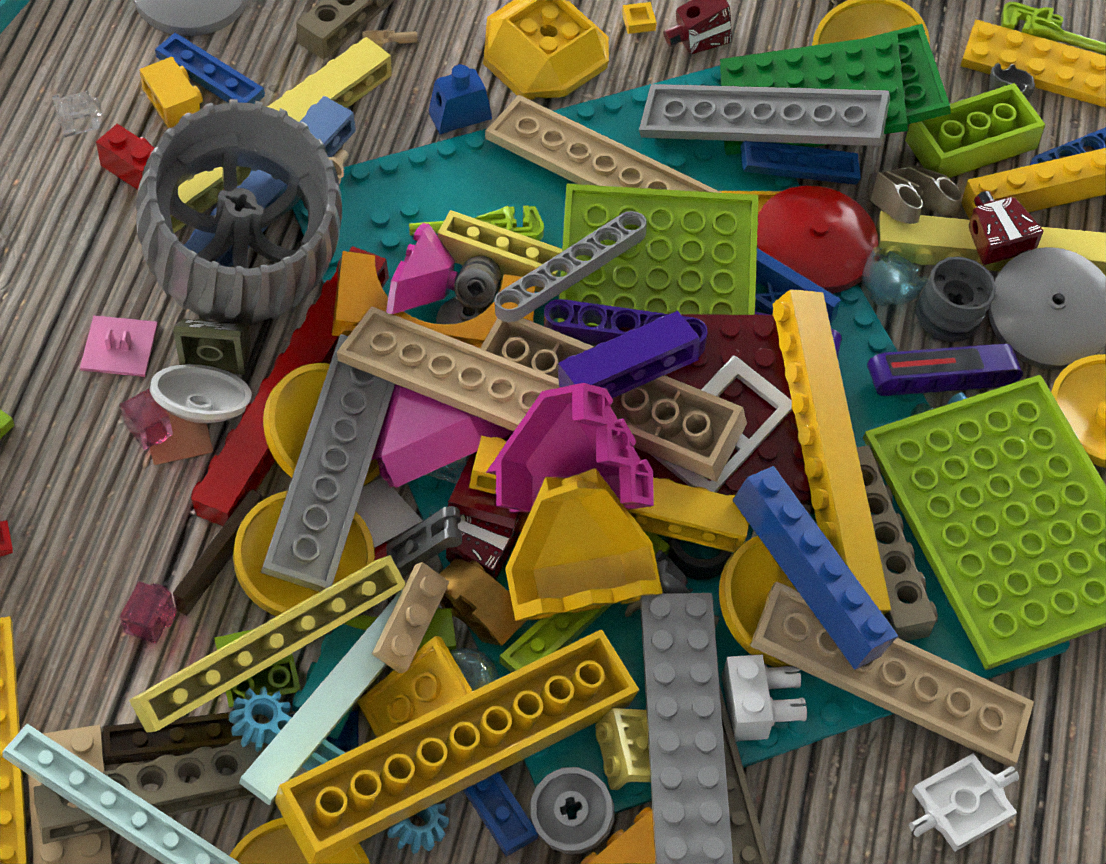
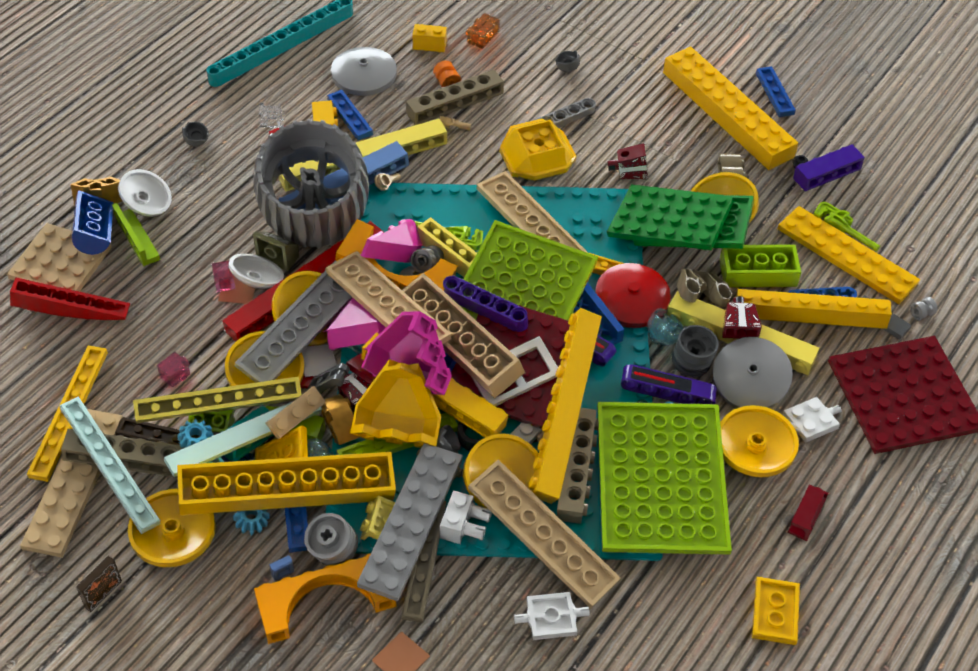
camera: 25 degrees right, 5 degrees down
(119, 346) = (231, 237): bright pink piece -> none
(213, 558) = (214, 357): dark brown tile -> none
(459, 100) = (473, 164): blue torso -> none
(567, 262) = (473, 264): light grey beam -> none
(634, 356) = (471, 316): dark purple brick -> none
(639, 17) = (599, 150): yellow plate -> none
(765, 114) = (635, 219): light grey plate -> none
(800, 162) = (647, 252): blue plate -> none
(814, 567) = (520, 459): blue brick -> none
(1001, 78) = (803, 245): dark grey hair -> none

